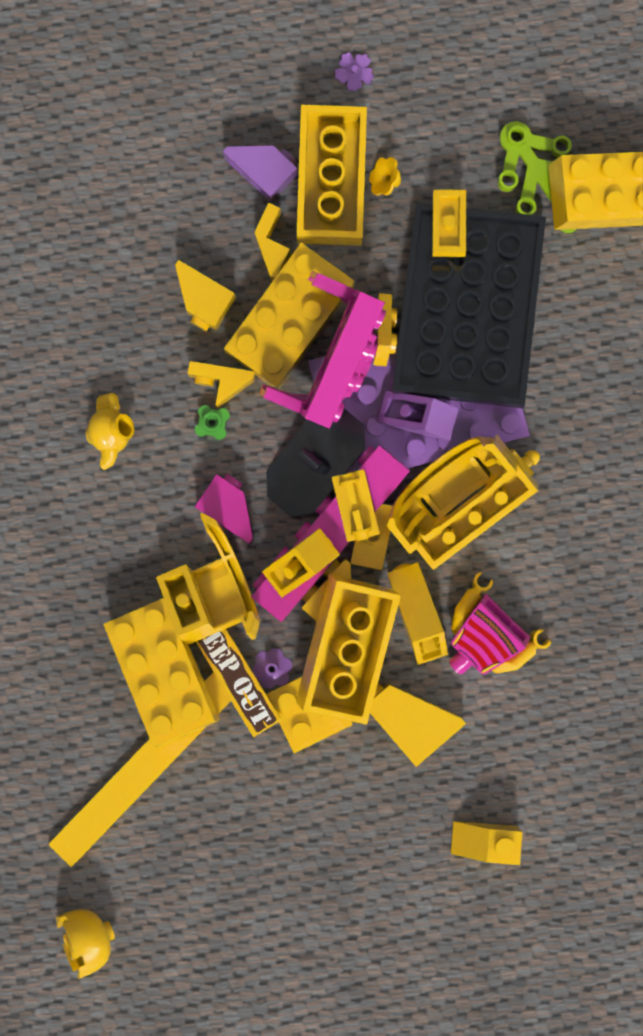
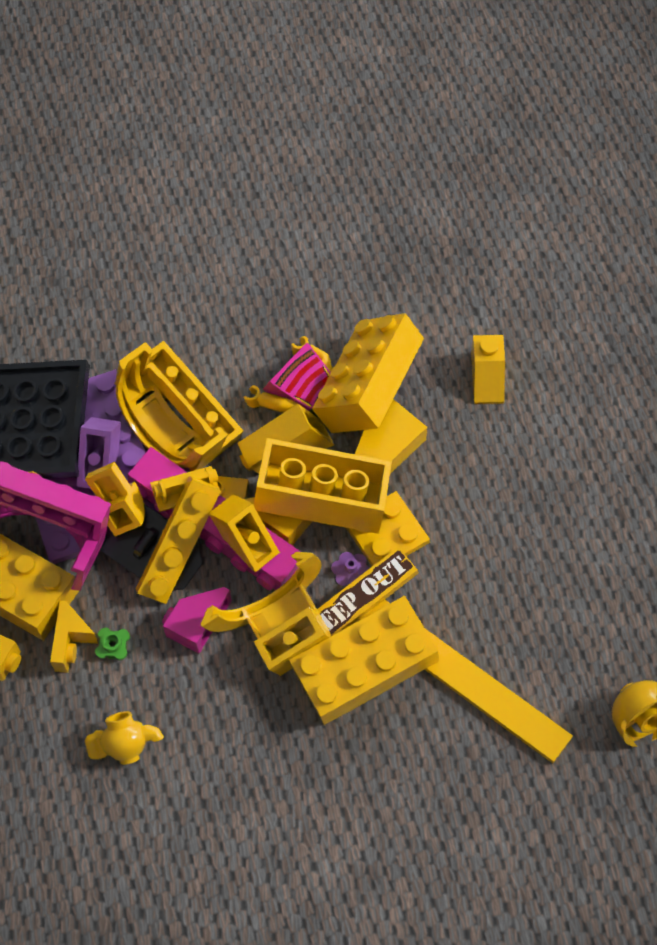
camera: 90 degrees left, 25 degrees down
(303, 495) = (178, 540): none -> yellow plate
(350, 436) = (126, 501): none -> yellow brick
(484, 711) = (368, 373): none -> yellow brick

